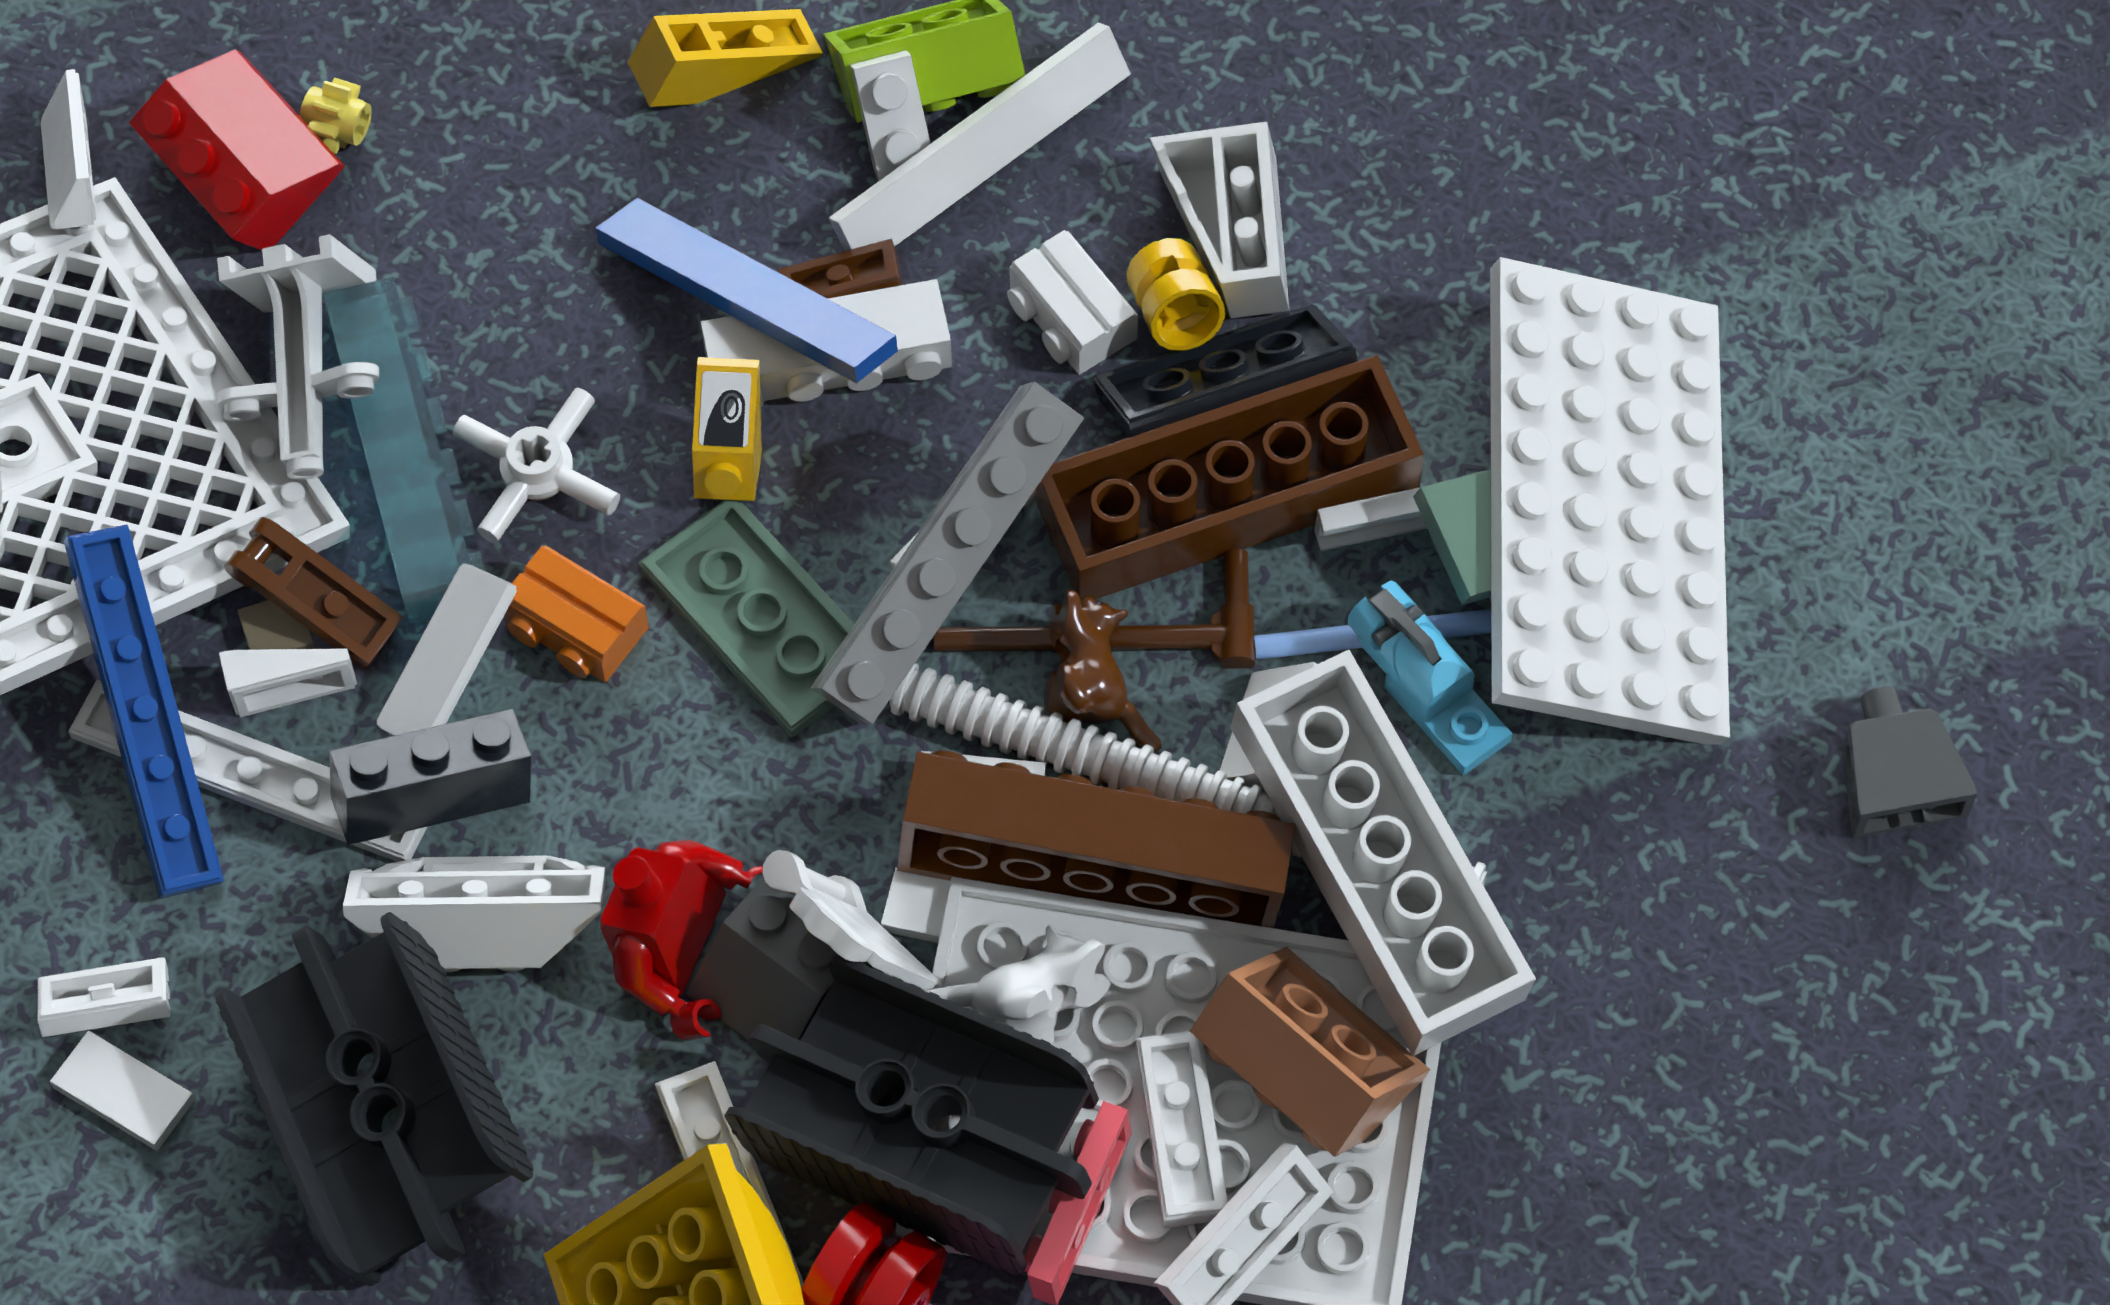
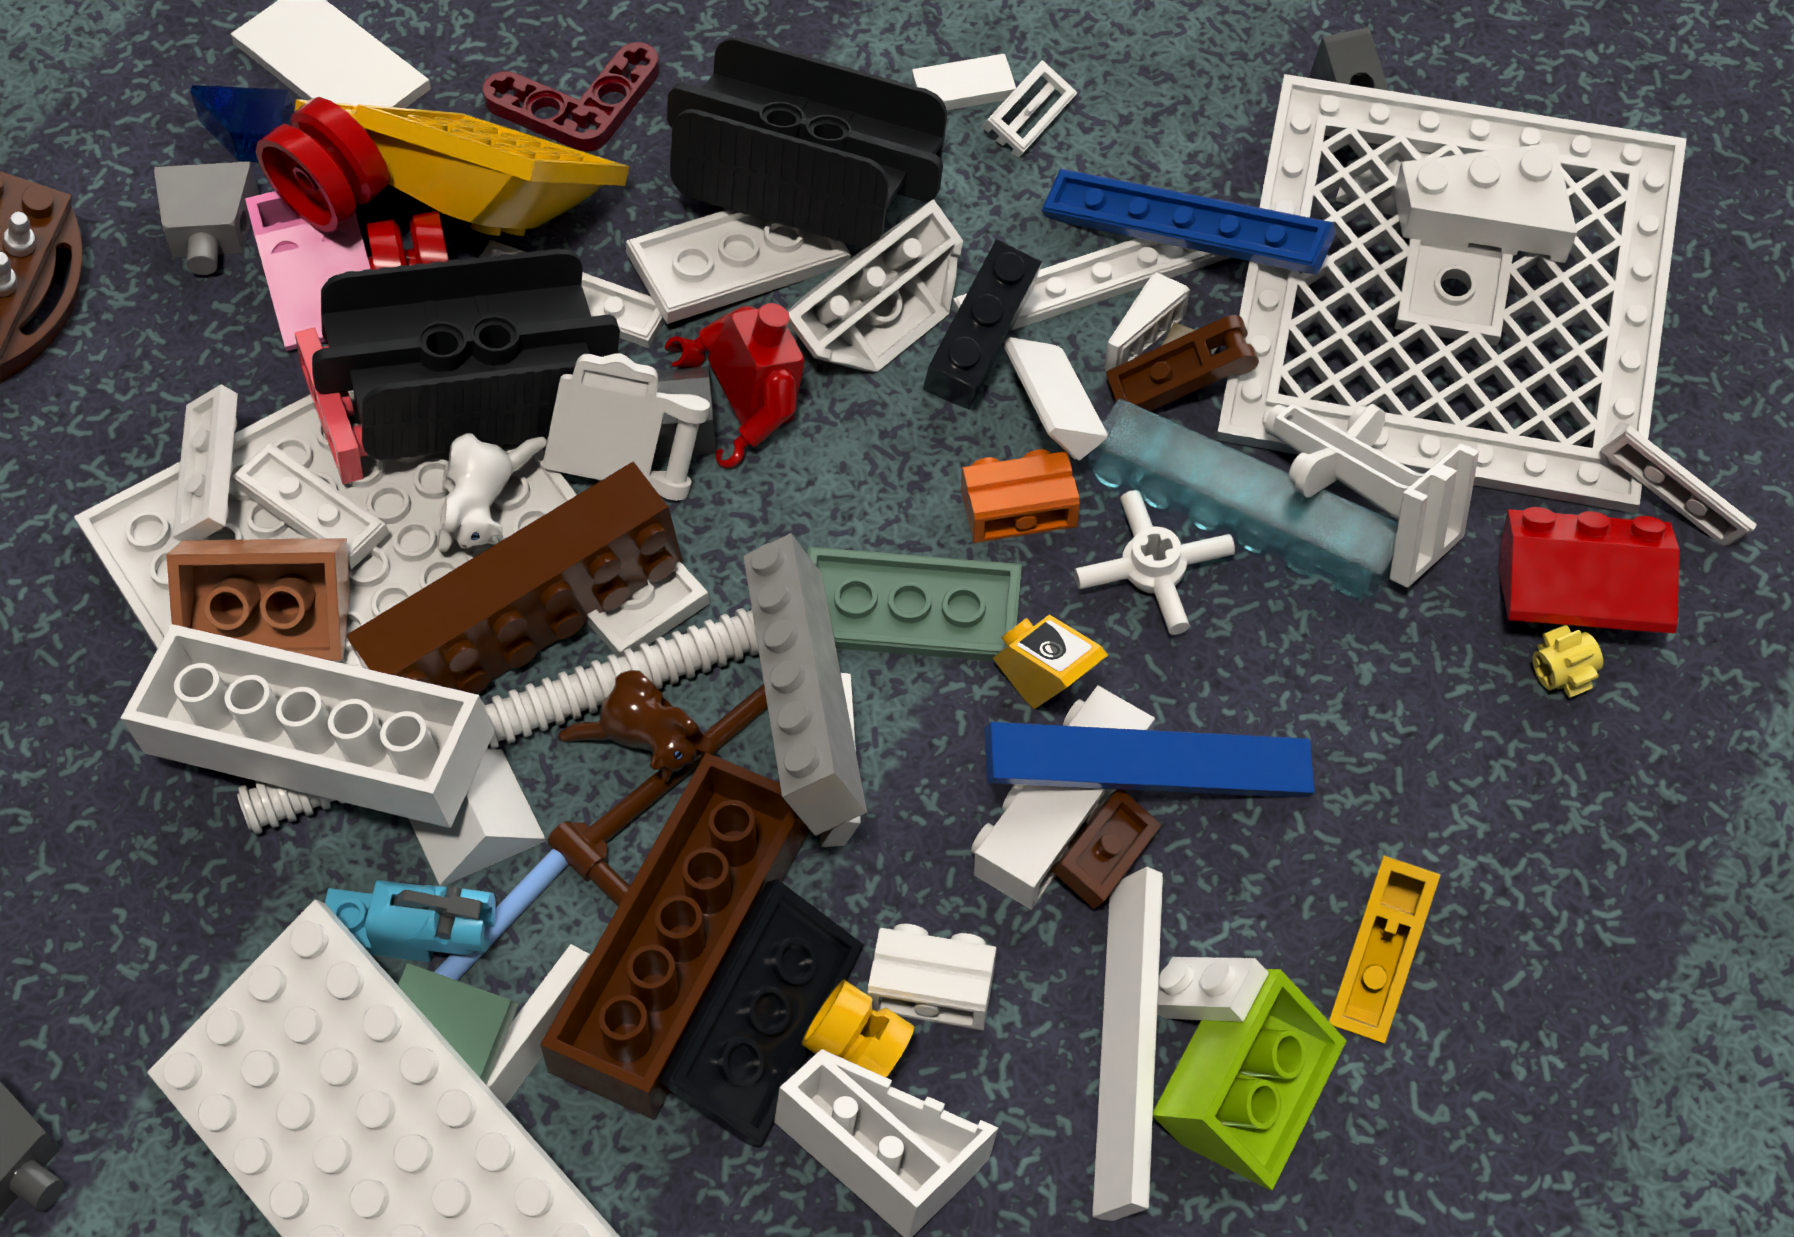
camera: 135 degrees right, 5 degrees down
(574, 1084) = (726, 261): none -> white tile

